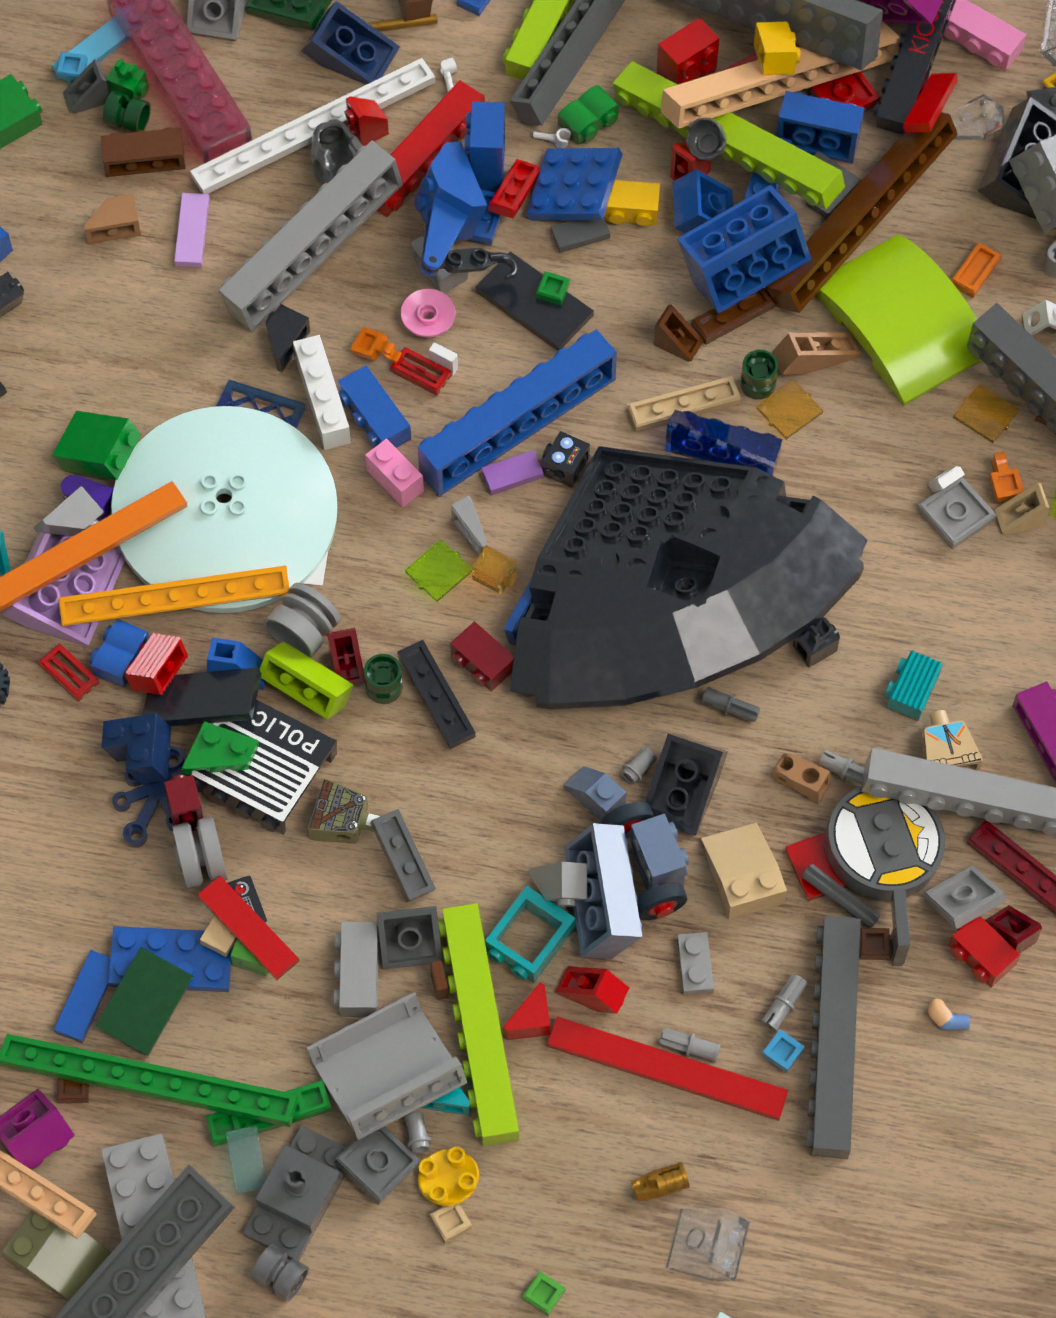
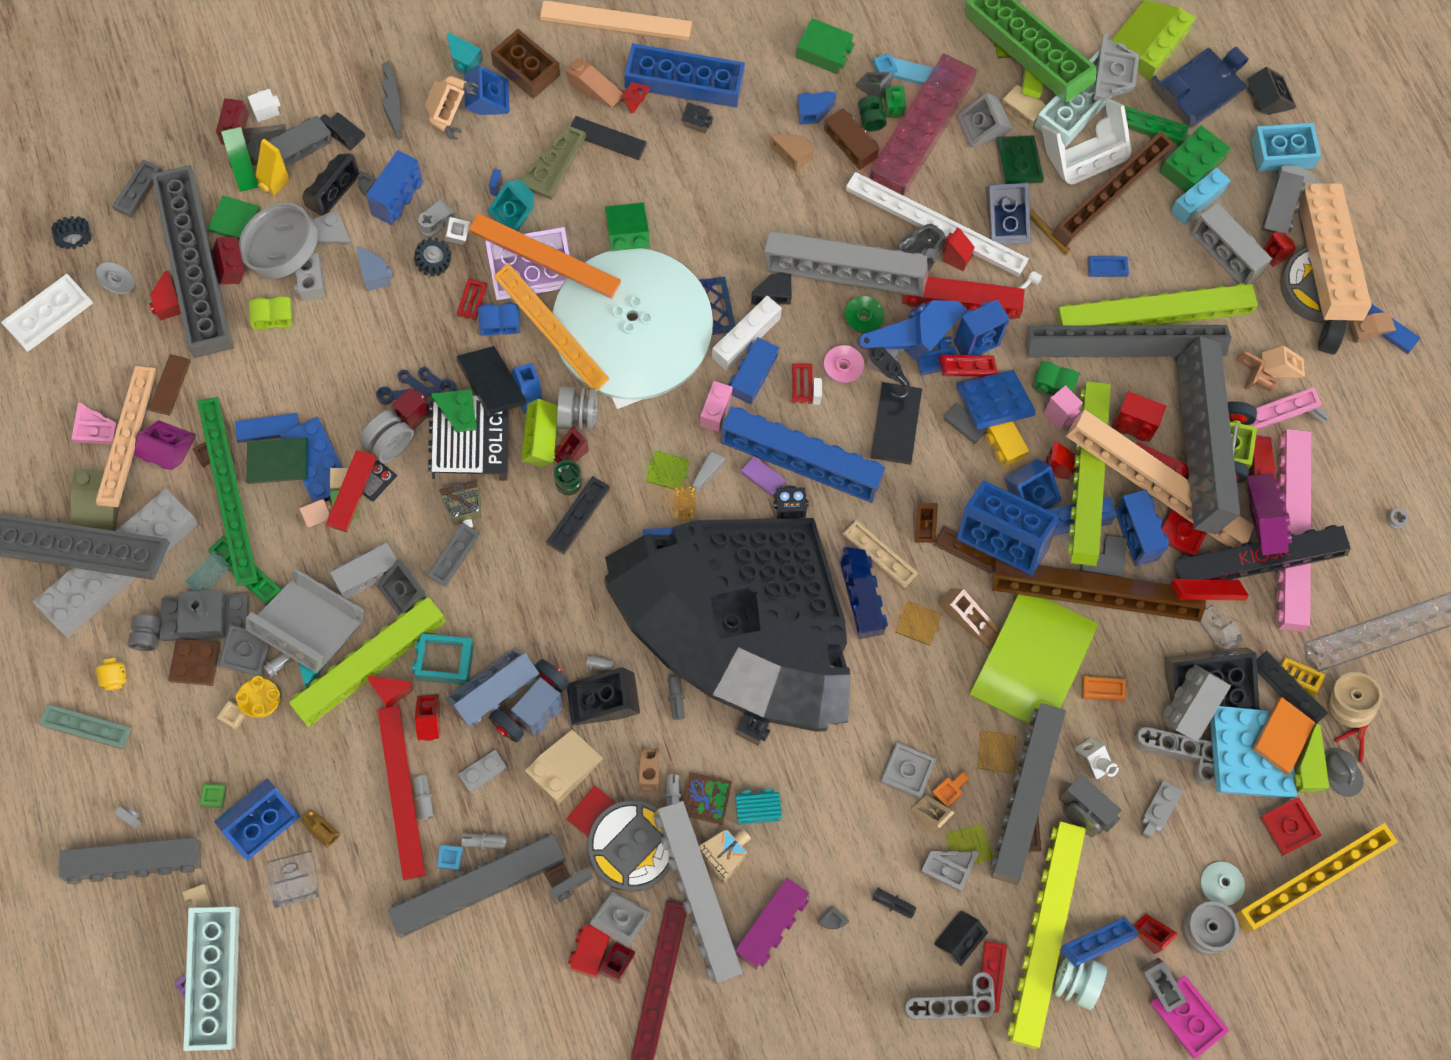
camera: 55 degrees right, 5 degrees up
(71, 516) = (563, 237): light grey slope -> none
(72, 169) = (814, 106): none -> blue slope
(100, 493) = (593, 237): dark purple leg -> none
(140, 742) = (440, 366): dark blue brick -> none
(156, 664) = (500, 343): brick -> none
(192, 230) = (816, 197): lavender tile -> none
(244, 988) = (315, 511): none -> brick
(352, 1234) = (194, 662): none -> reddish brown plate
(373, 343) = (799, 343): orange plate -> none
(375, 250) = (866, 307): none -> green dish
(439, 980) = (386, 618): reddish brown tile -> none
(481, 656) = (619, 528): dark red brick -> none
(553, 288) = (910, 428): green tile -> none
(556, 138) = (1026, 370): white hand -> none
(561, 882) = (484, 657): light grey slope -> none
(596, 791) = (565, 647): sand blue slope -> none
(606, 1251) = (256, 819): none -> blue slope
(631, 122) = (1063, 408): none -> bright pink brick
(706, 139) = (1071, 458): dark grey hair -> none
(759, 374) = (927, 588): dark green wheel -> none
(776, 48) = (1170, 464): yellow brick -> none
(840, 895) = (577, 838): dark grey axle -> none
(868, 729) = (706, 798): none -> tile
(945, 479) = (925, 749): white tile -> none
(945, 1019) = (529, 950): arm -> none

